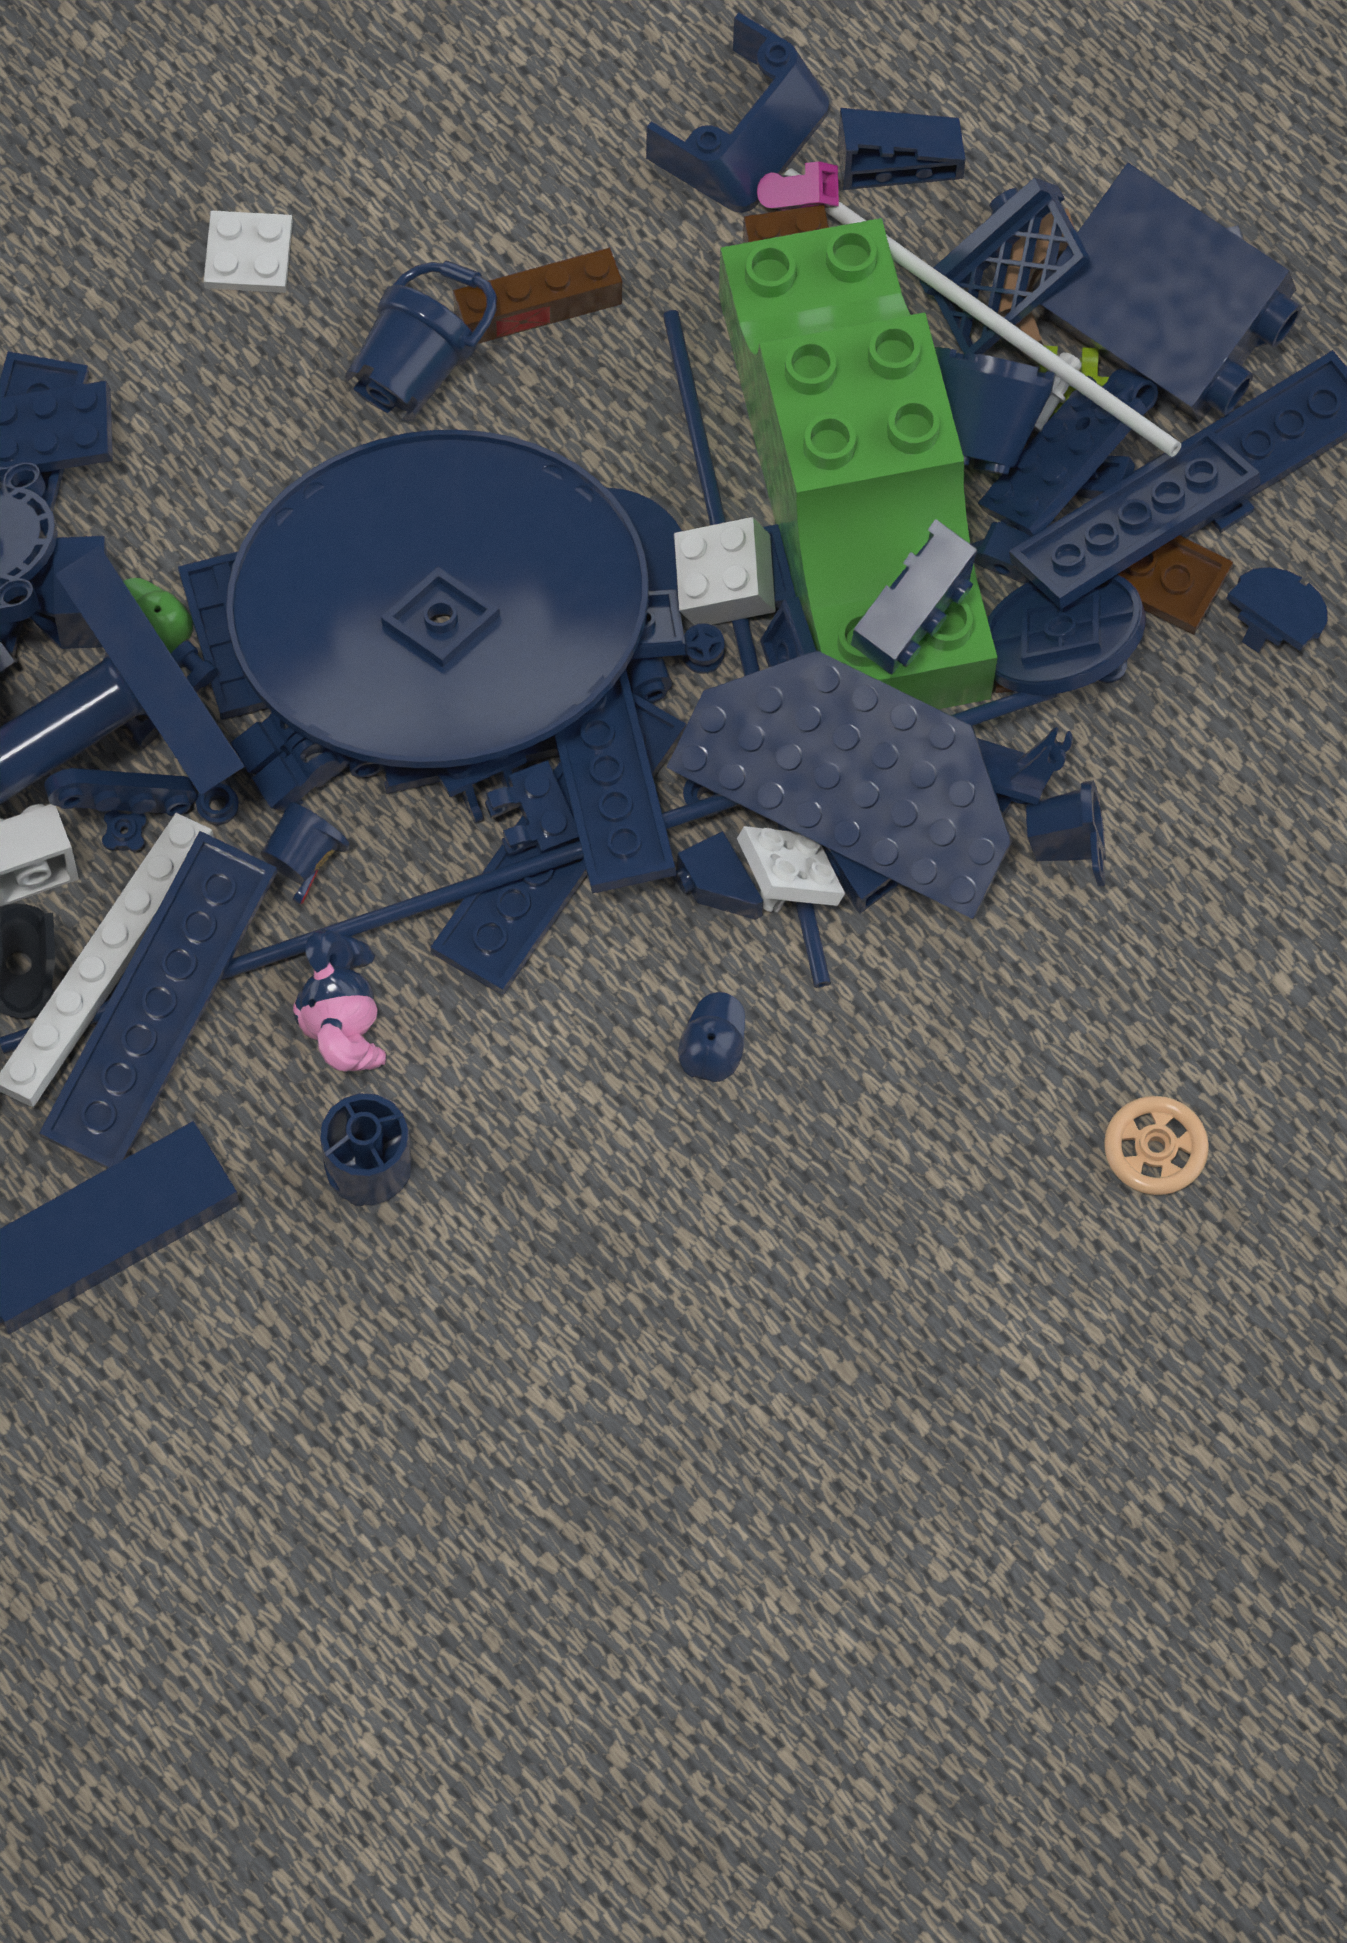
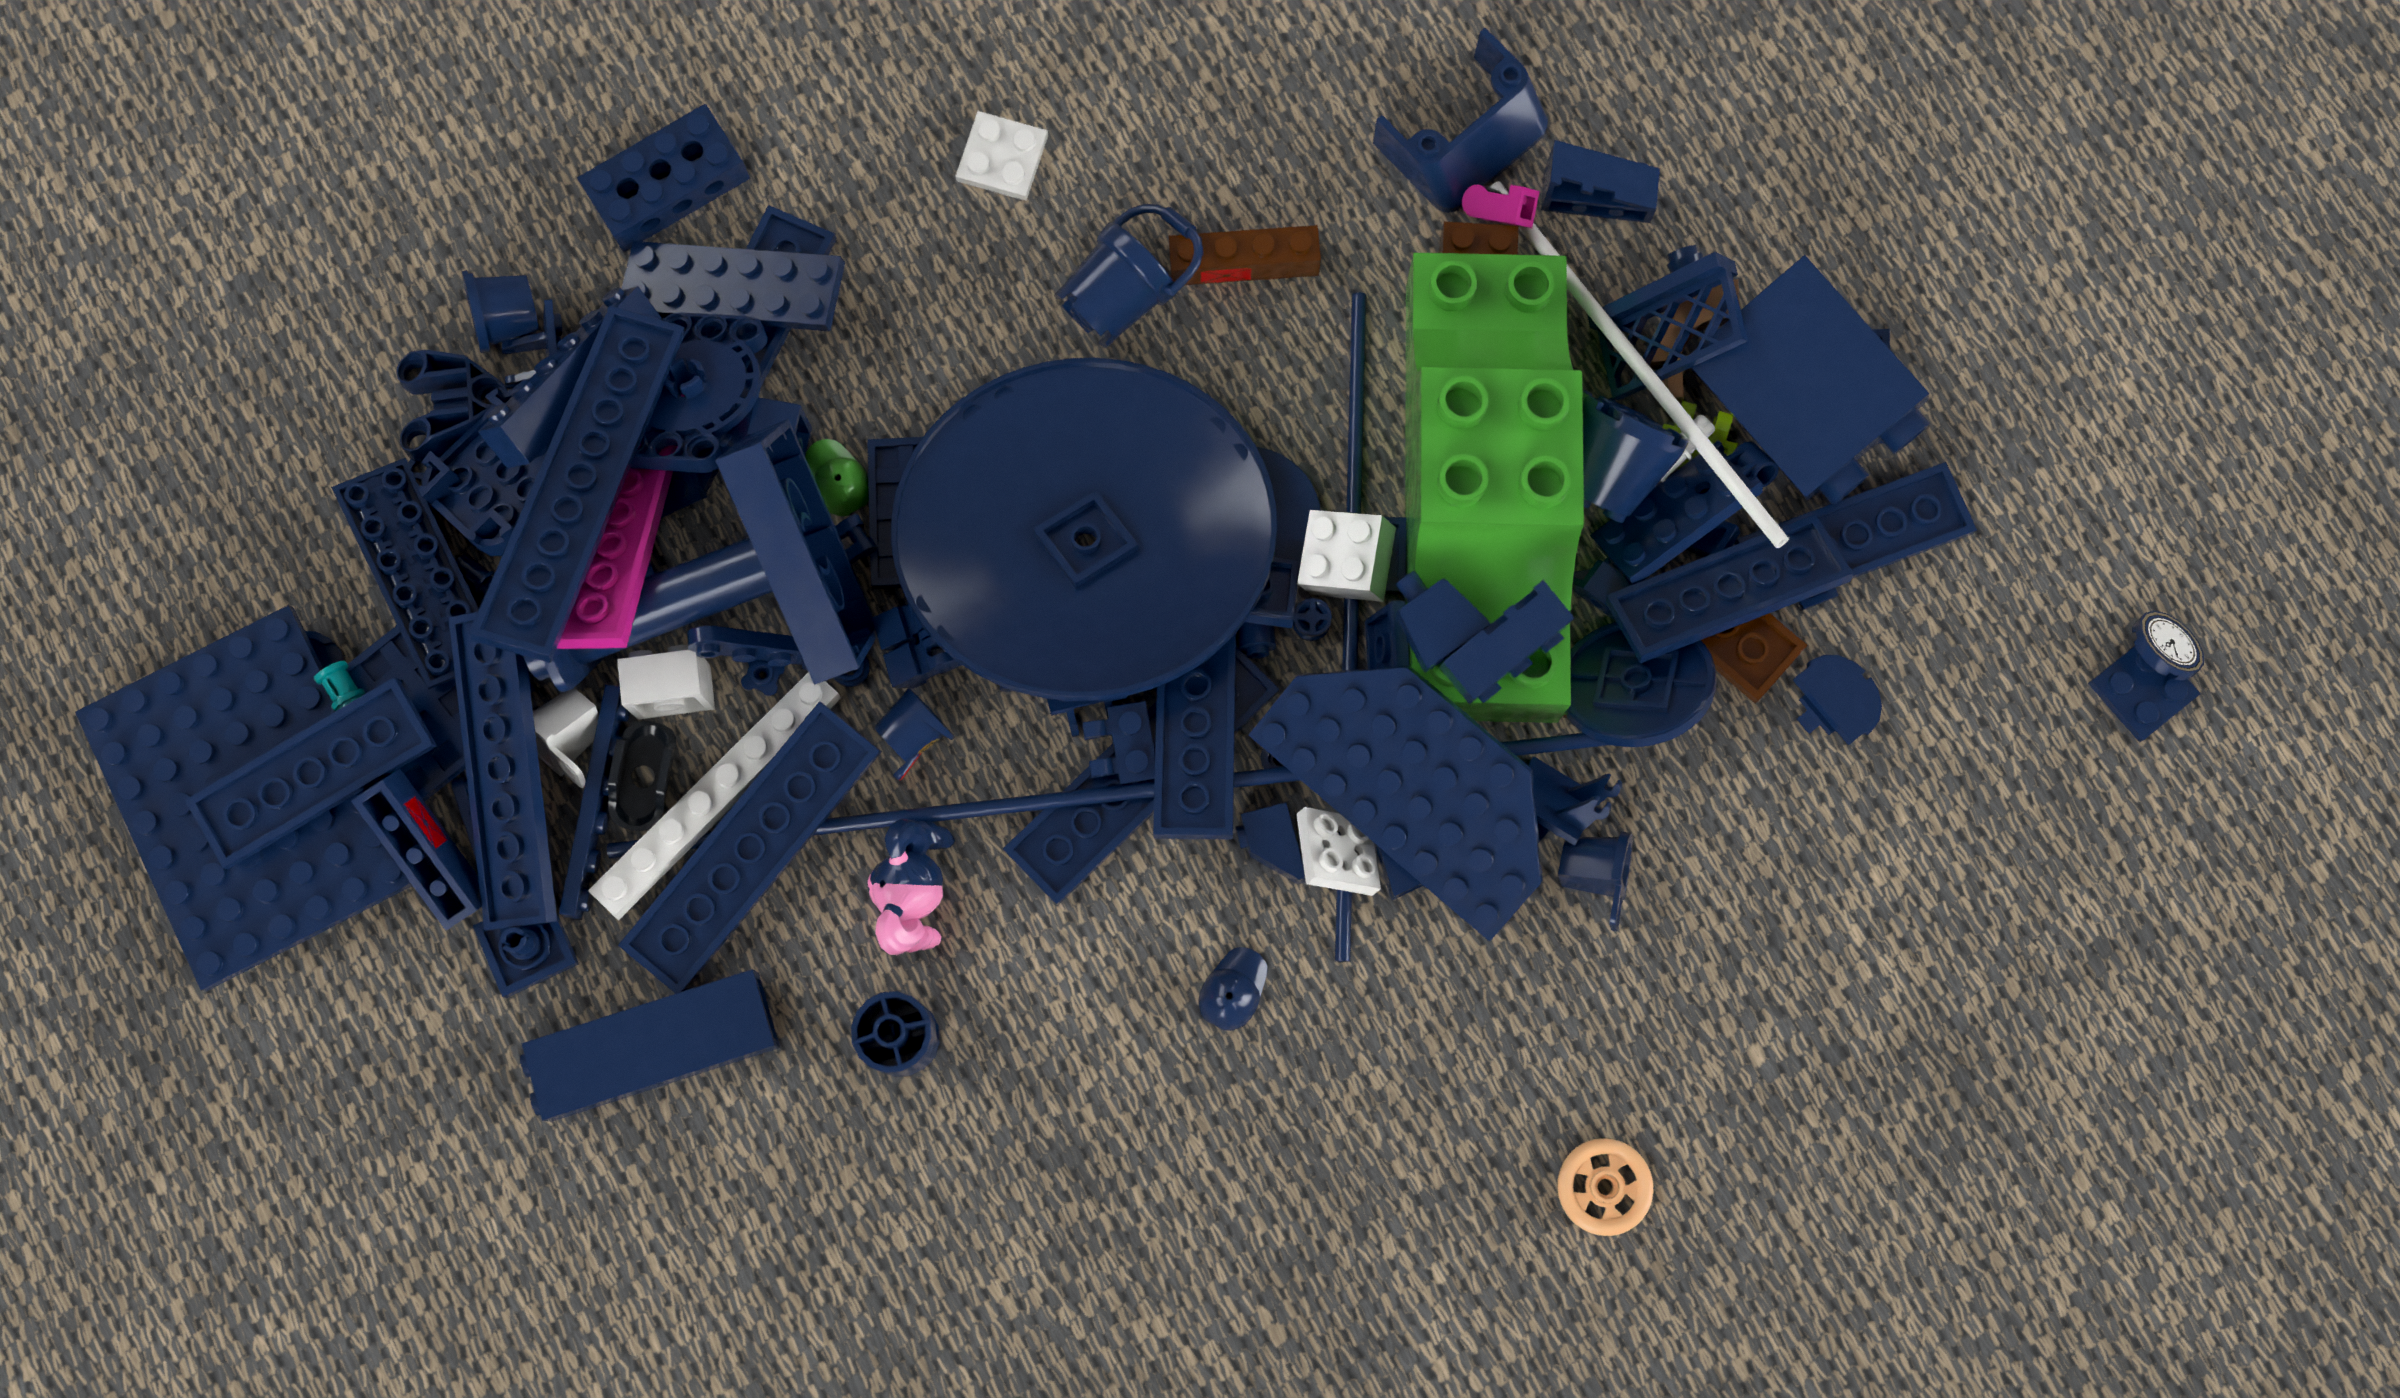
camera: 15 degrees right, 10 degrees up
(834, 593) = (1436, 619): none -> dark blue torso

